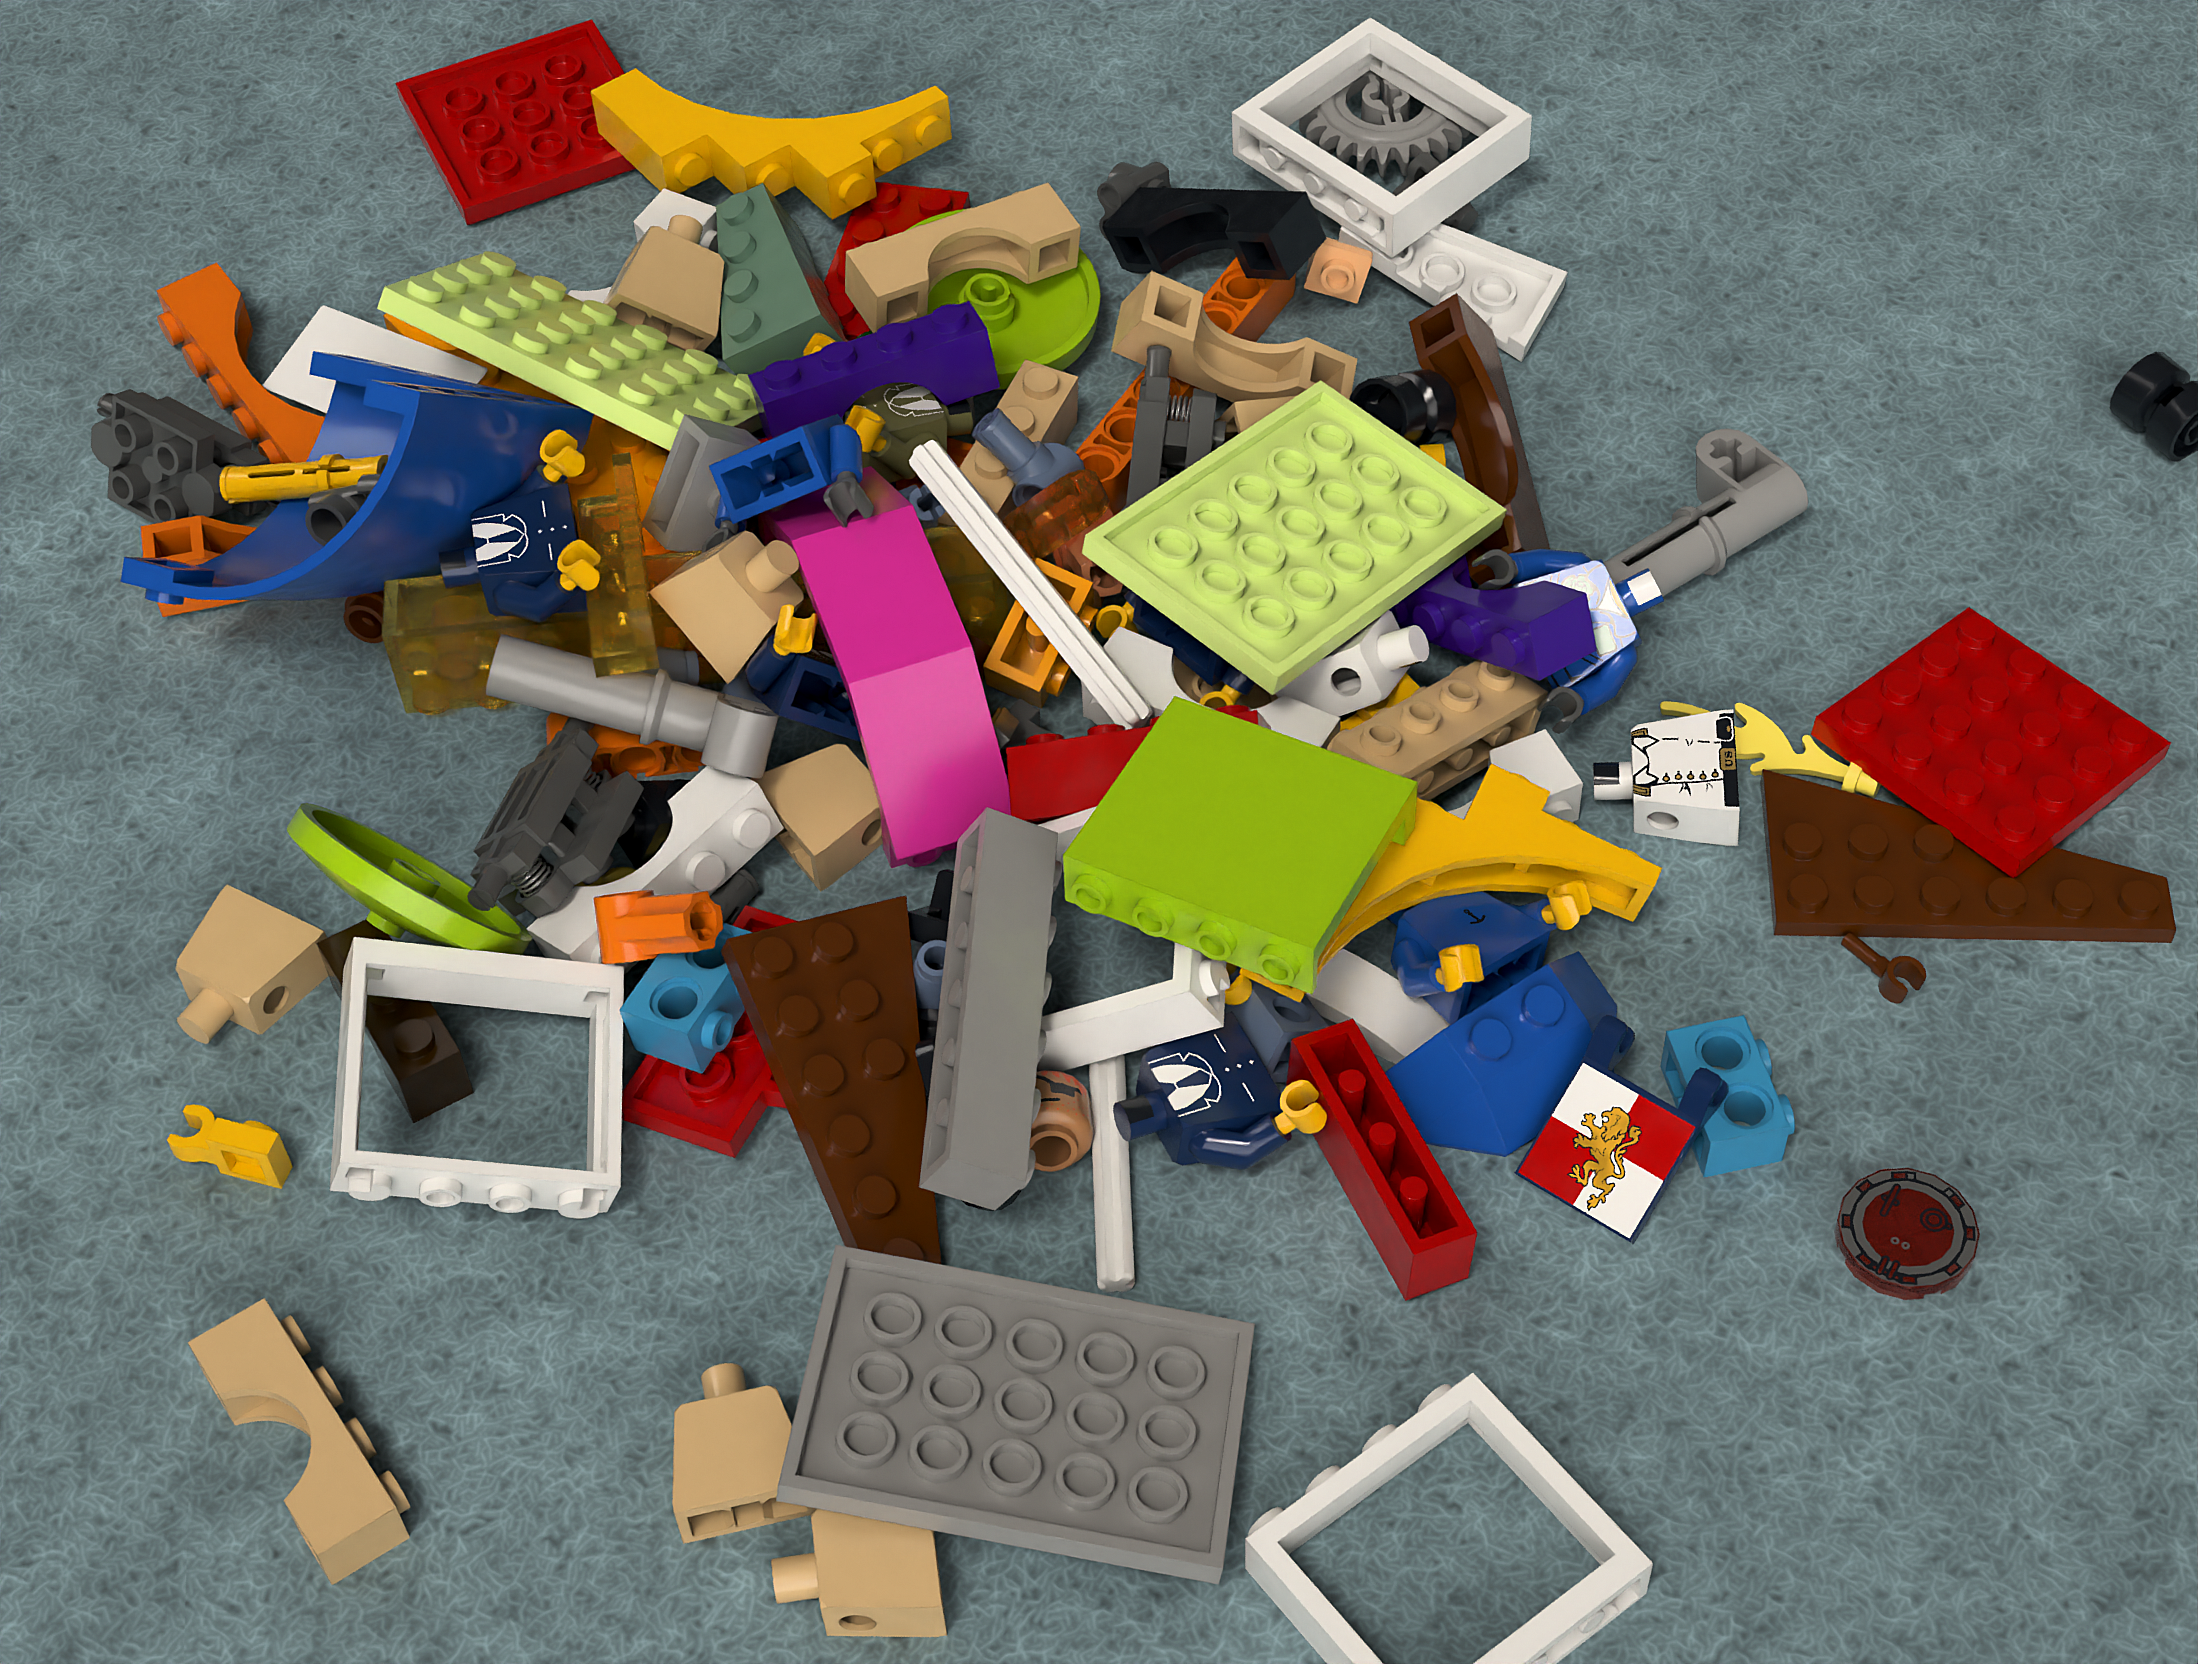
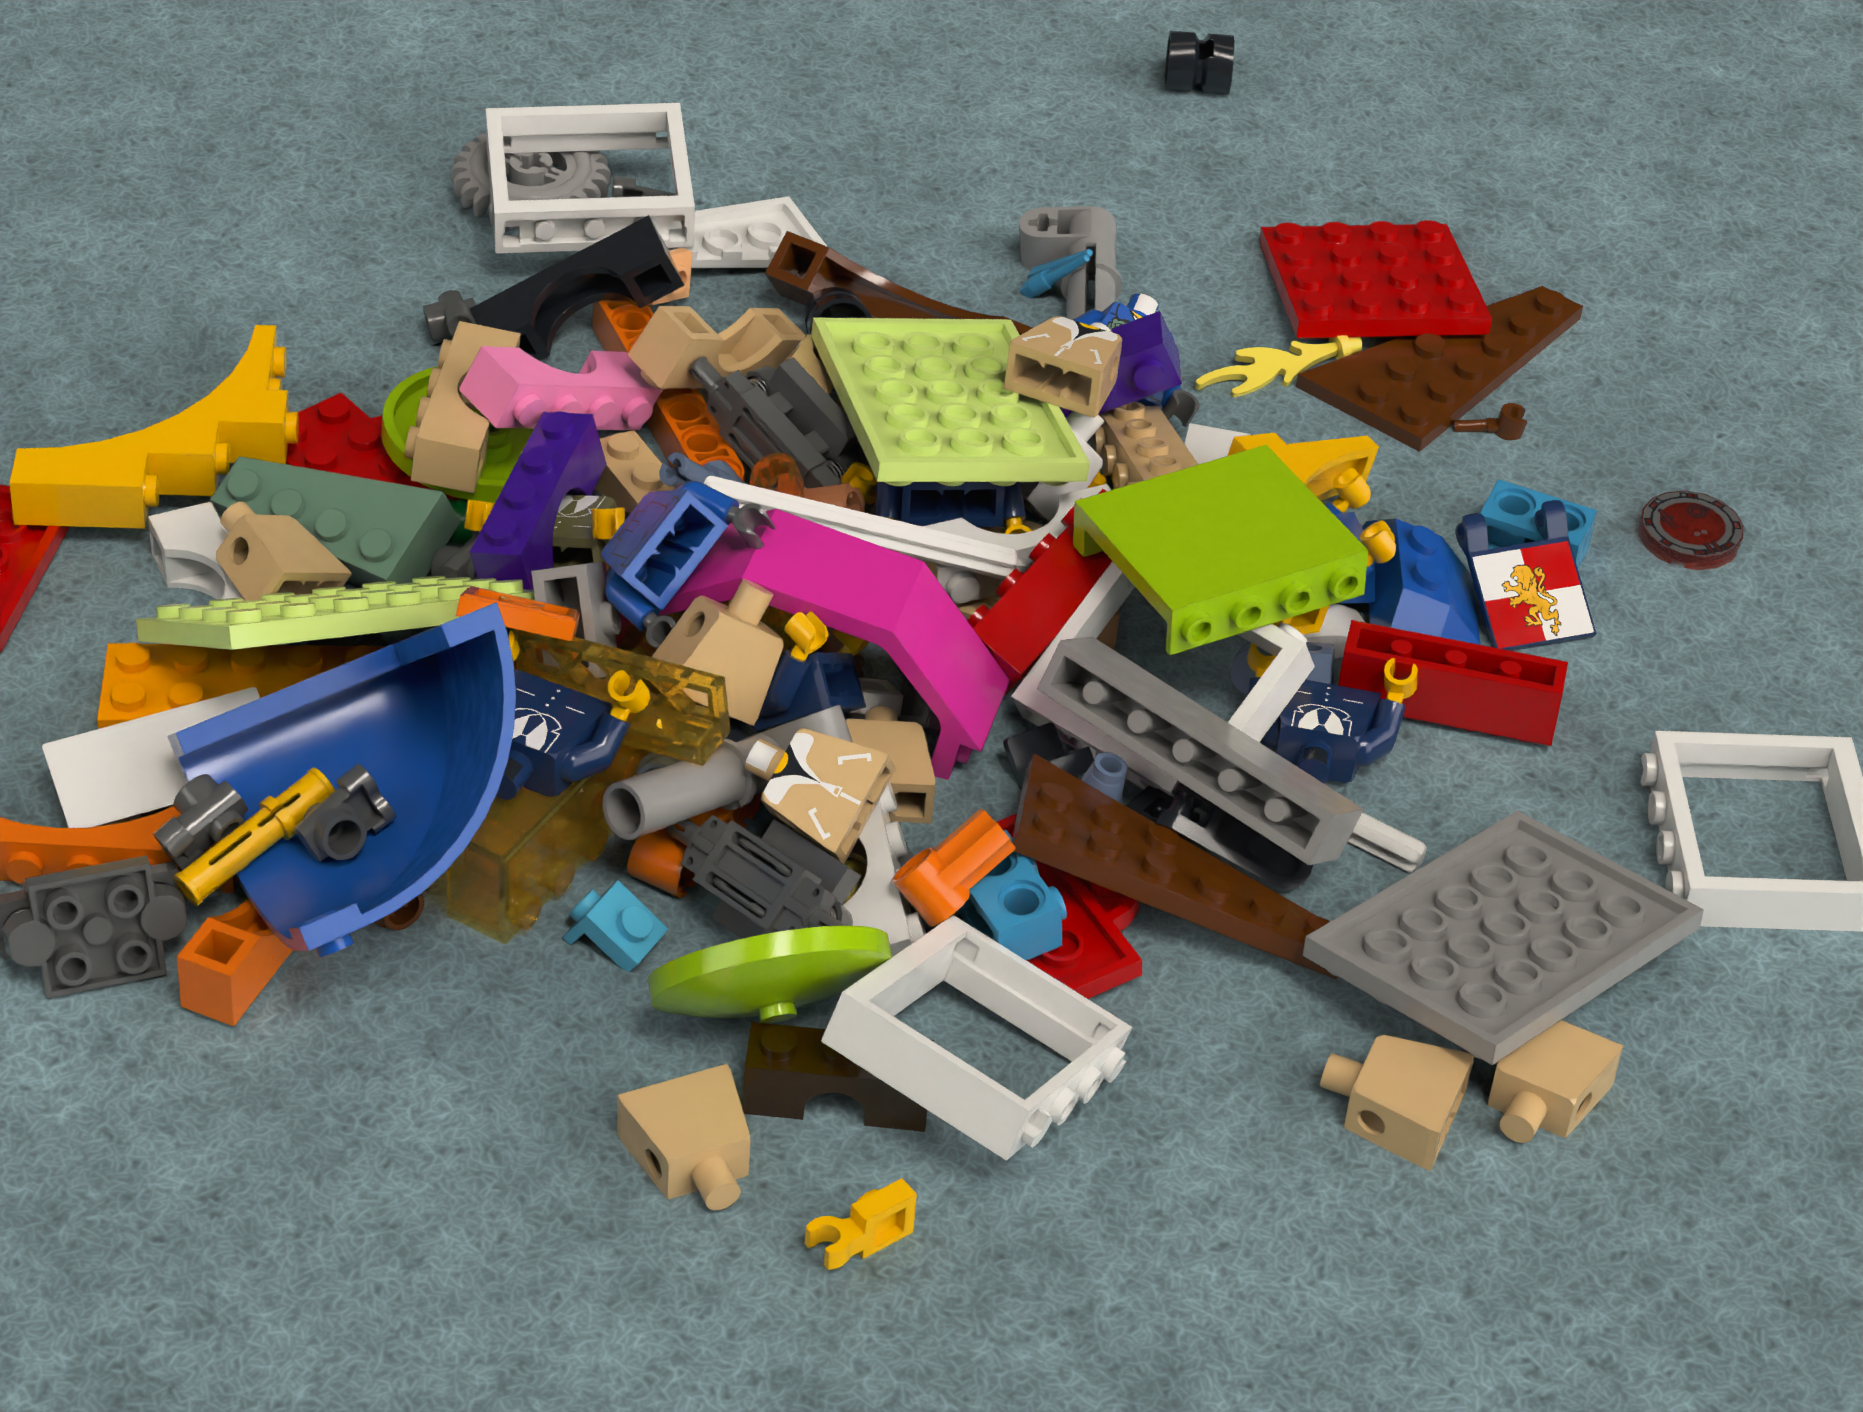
camera: 60 degrees left, 10 degrees down
(297, 437) = (207, 815): none -> dark grey plate
(339, 1500) = (1252, 1309): tan arch -> none
(467, 764) = (616, 925): none -> medium azure bracket
(604, 439) = (523, 613): none -> orange tile
(658, 776) = (822, 787): none -> tan torso
(981, 265) = (517, 388): none -> bright pink arch
(1422, 577) = (1065, 364): none -> tan torso
(1667, 505) = (1047, 274): none -> dark azure piece
(1679, 778) = (1282, 398): white torso -> none

